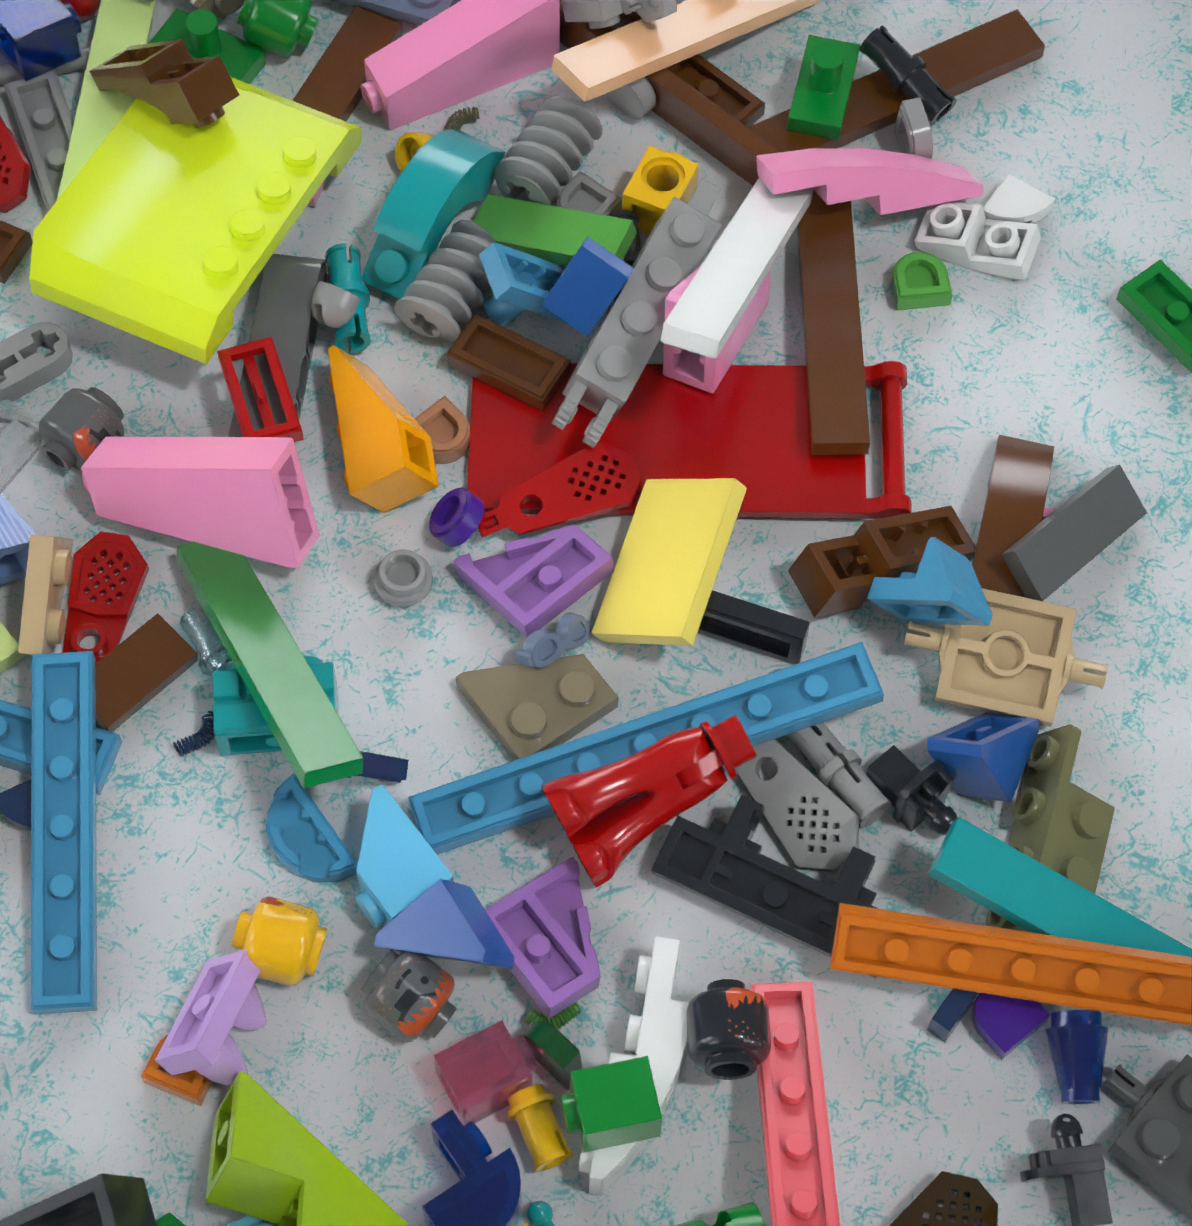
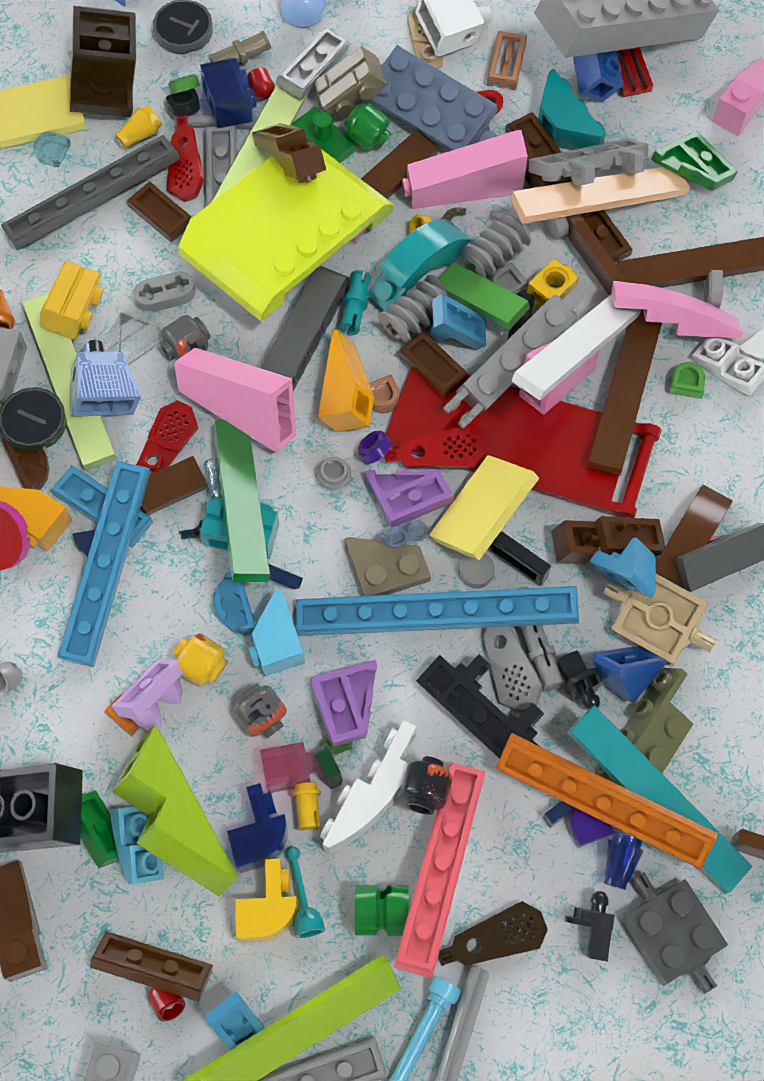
camera: 20 degrees right, 5 degrees up
(43, 594) = (134, 427): tan wing -> none
(246, 352) = (285, 370): red tile -> none
(333, 305) = (342, 306): light grey hinge -> none
(447, 925) = (292, 680): slope -> none
(587, 286) = (487, 334): blue slope -> none
(612, 1104) = (345, 808): green brick -> none
(668, 780) = (413, 638): red piece -> none
(688, 669) = (477, 573): none -> light grey tile
(823, 87) = (669, 249): green tile -> none
(907, 73) = (721, 254): black pin -> none

